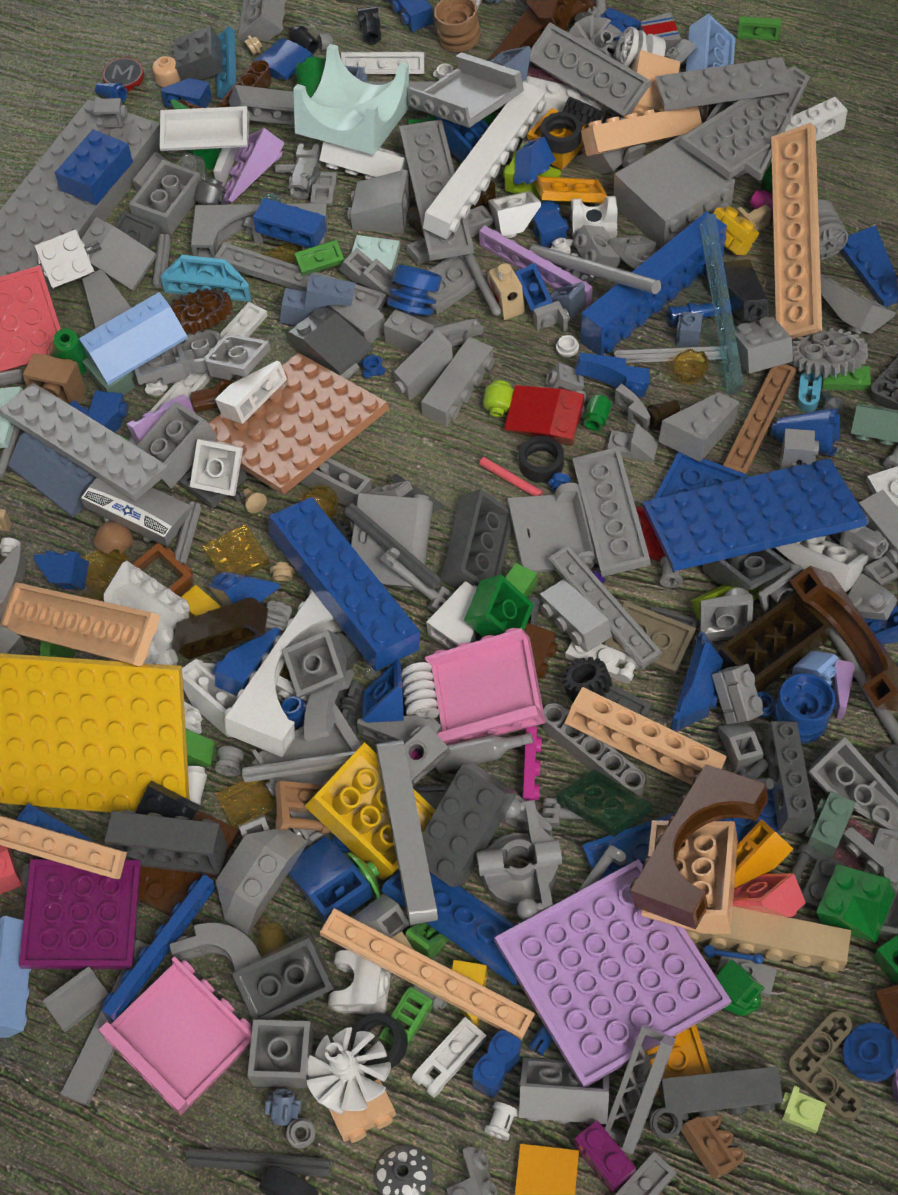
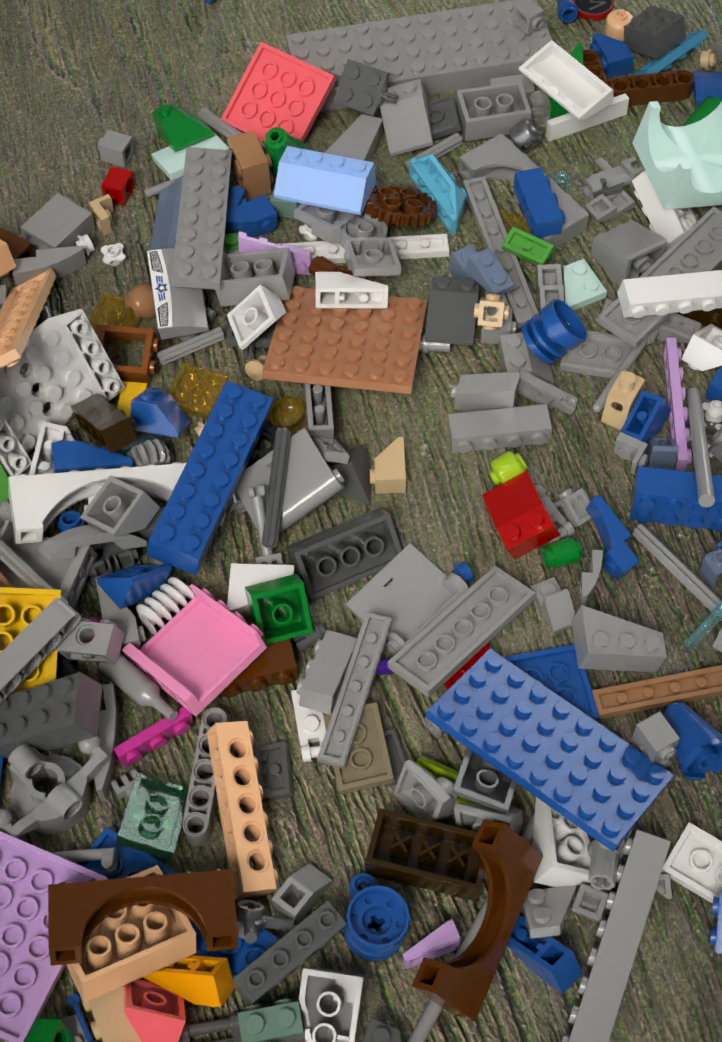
camera: 50 degrees right, 0 degrees up
(41, 538) = (113, 254): none -> white plate
(62, 570) = (88, 289): blue slope -> none
(94, 167) = (464, 43): blue brick -> none
(252, 161) = (594, 139): lavender wedge -> none
(265, 104) = (635, 96): light grey brick -> none
(363, 313) = (487, 320): none -> tan brick
(369, 362) = (461, 354): blue plate -> none
(432, 470) = (389, 469): none -> tan slope
(510, 477) = (438, 540): coral bar -> none
(523, 579) = (328, 609): bright green brick -> none
(536, 444) = (475, 525): black tyre -> none
(567, 346) = (613, 485): white plate -> none
(585, 670) = (272, 713): black tyre -> none
(662, 411) = (608, 603): dark brown cone -> none
(690, 366) = (677, 594): clear yellow hair -> none
(698, 688) = (339, 820): blue wedge -> none
(738, 694) = (345, 855): light grey brick -> none
(818, 664) = (425, 910): light blue slope -> none

